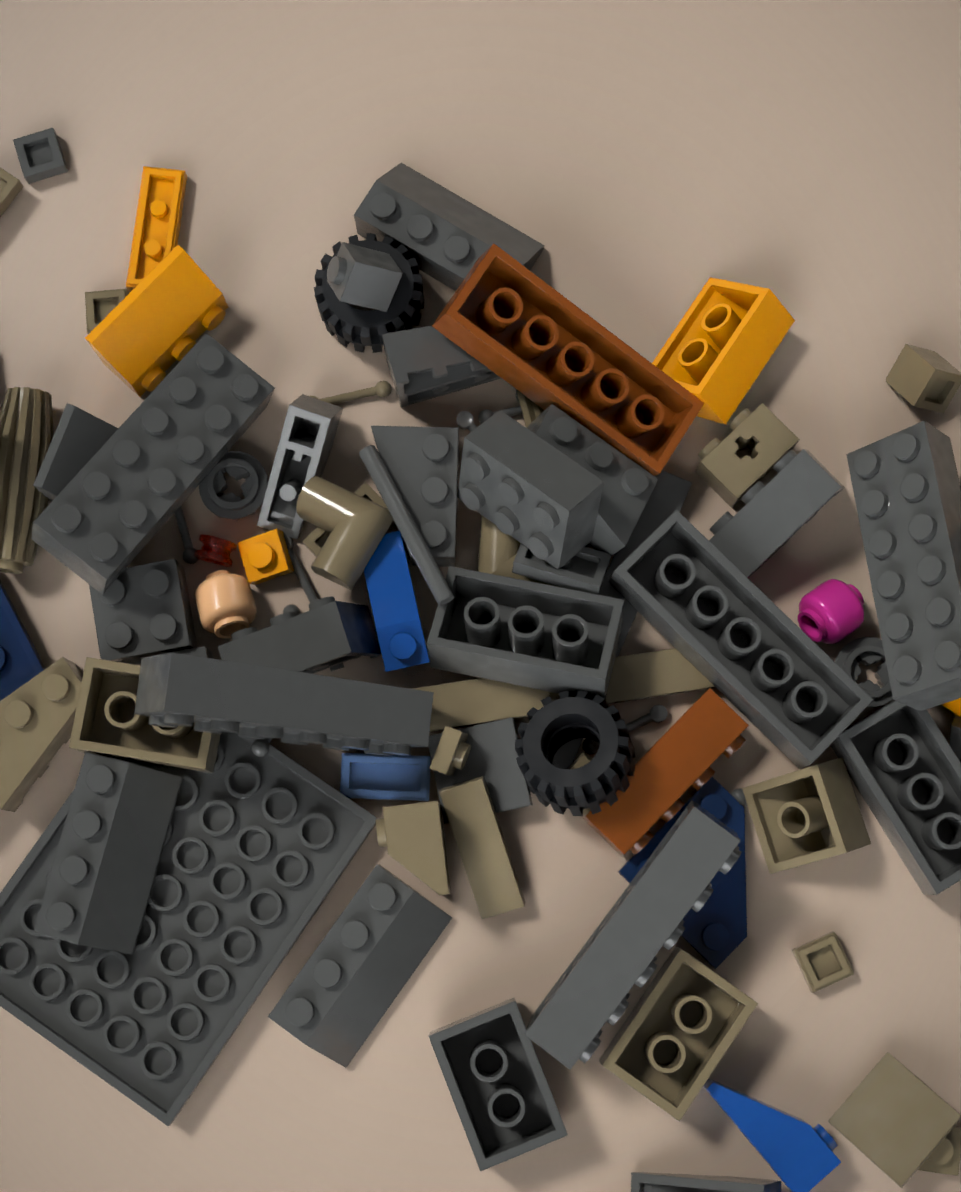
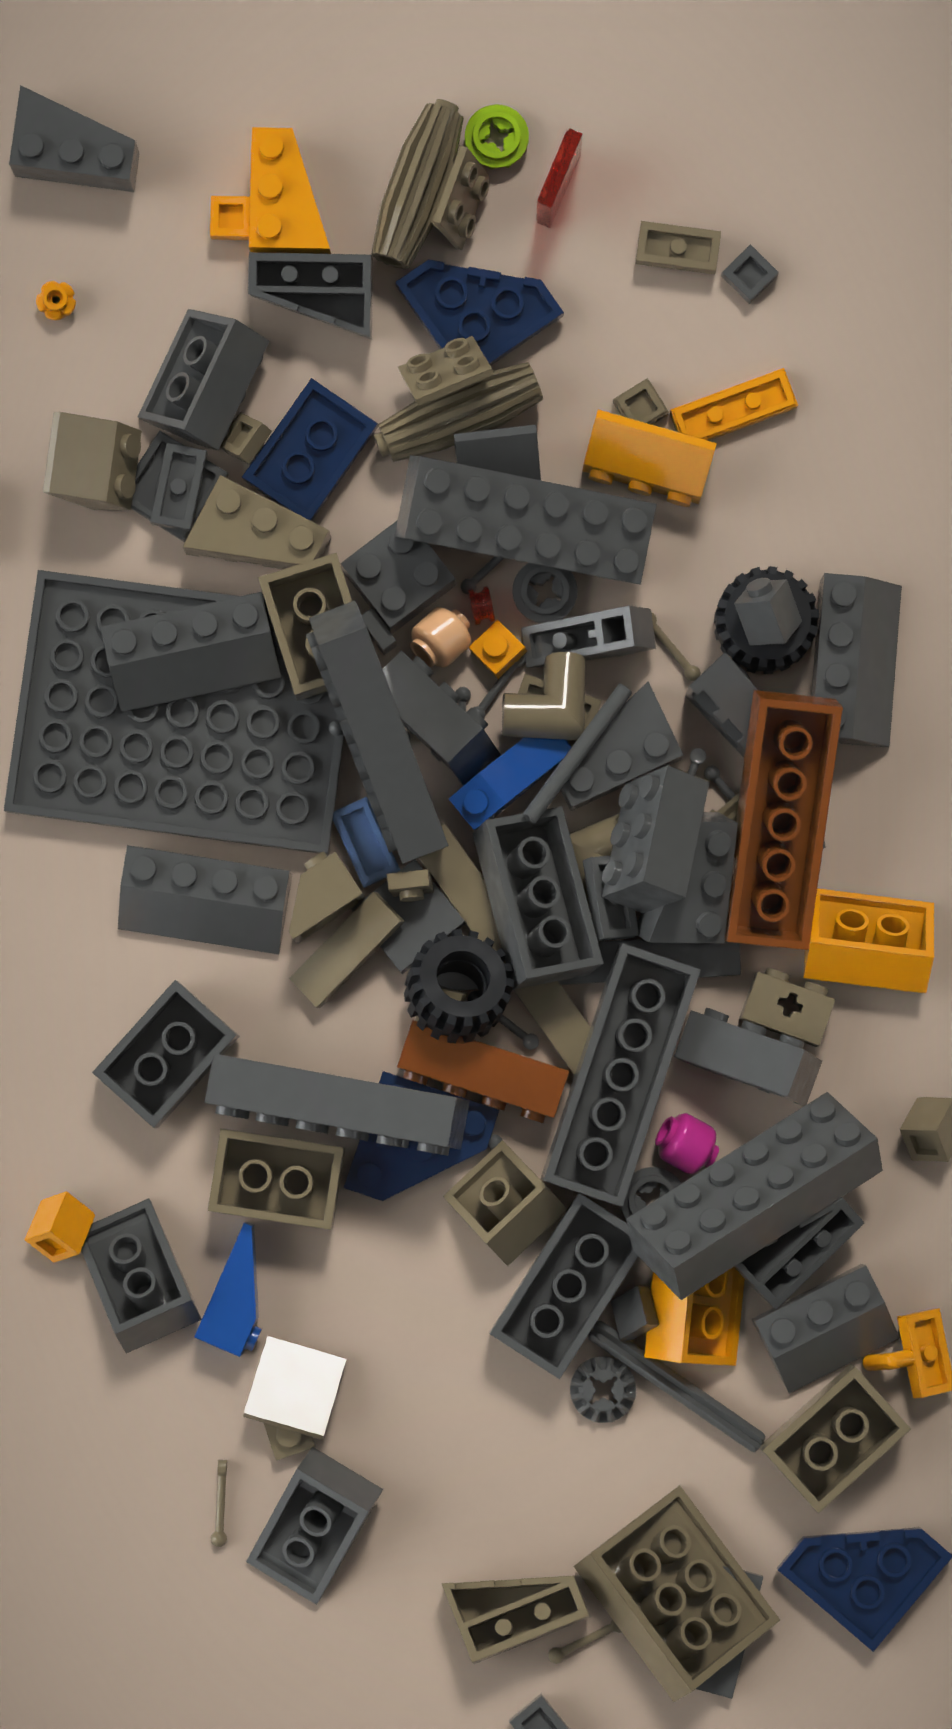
camera: 65 degrees right, 5 degrees up
(822, 962) = (393, 1273): dark tan tile -> none

